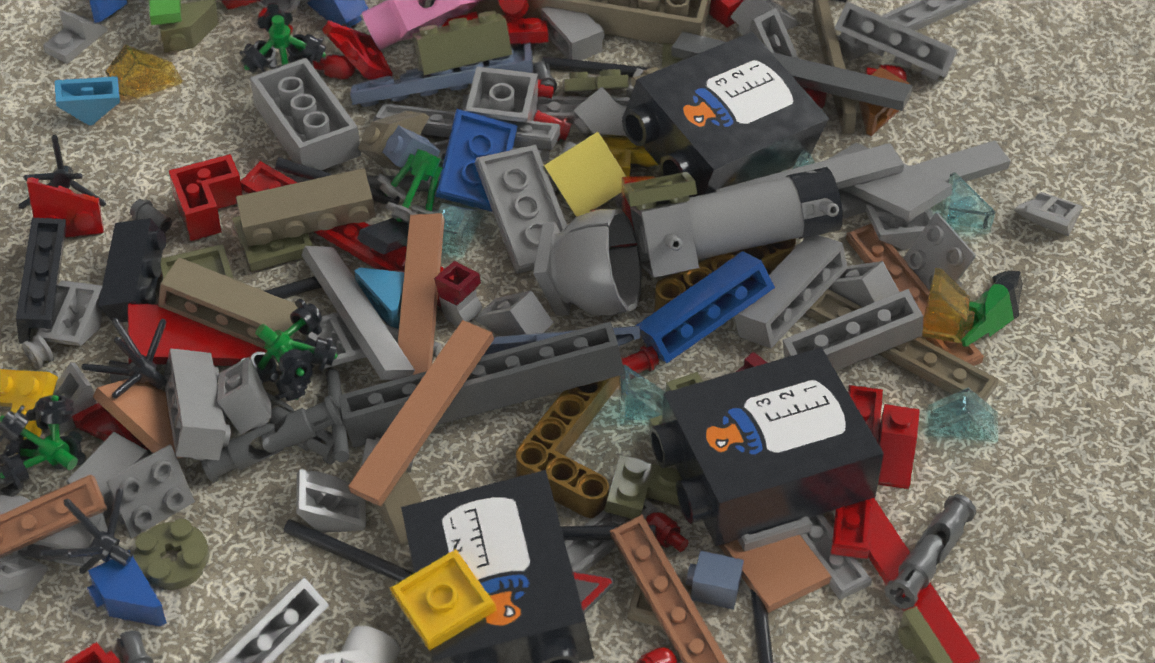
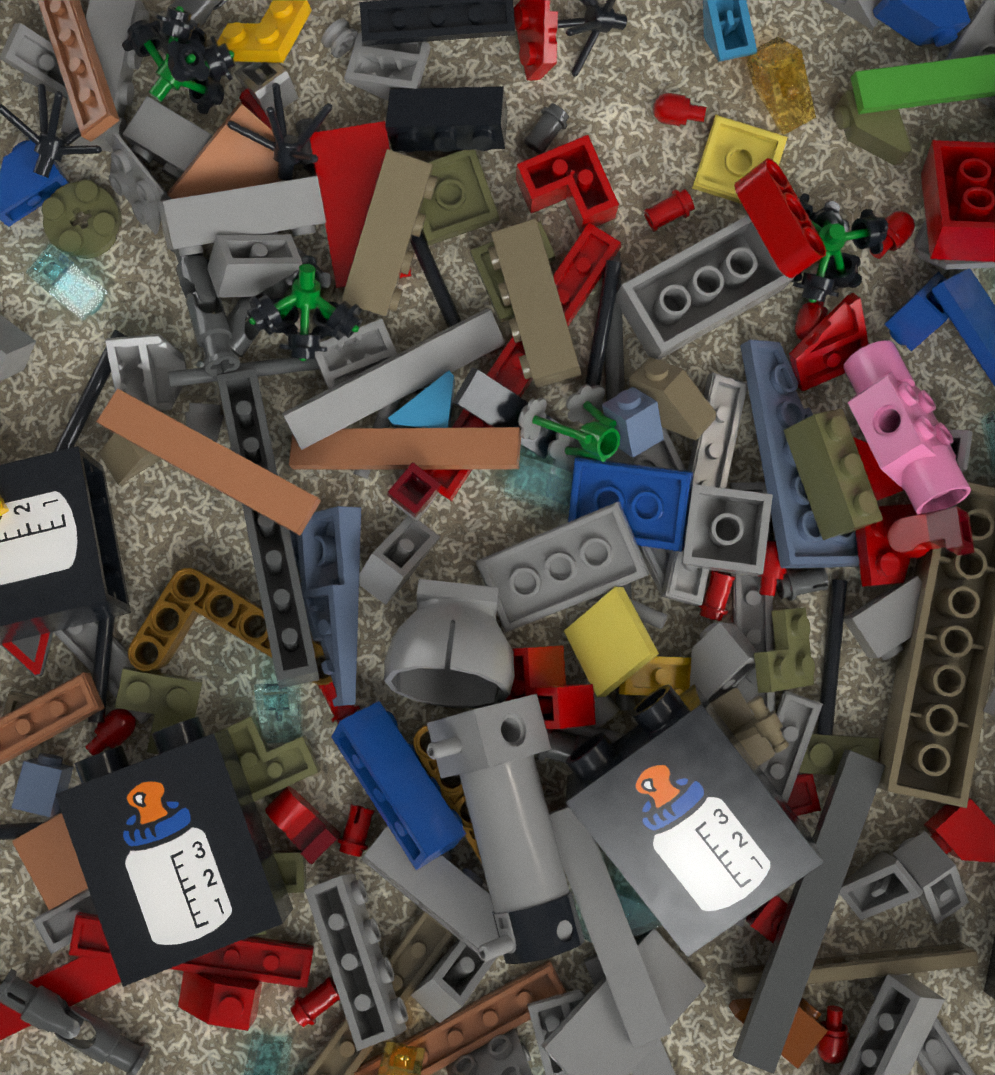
camera: 90 degrees right, 35 degrees up
(150, 137) = (676, 109): none -> red cylinder
(201, 105) = (732, 153): none -> light yellow tile
(231, 560) = (67, 283): none -> clear light blue slope
(232, 140) = (669, 209): none -> red pin
(259, 56) = (780, 218): none -> red beam
(671, 187) = (524, 732): olive plate -> none
(739, 351) = (356, 831): none -> red pin
(894, 383) = (315, 1003): none -> red pin

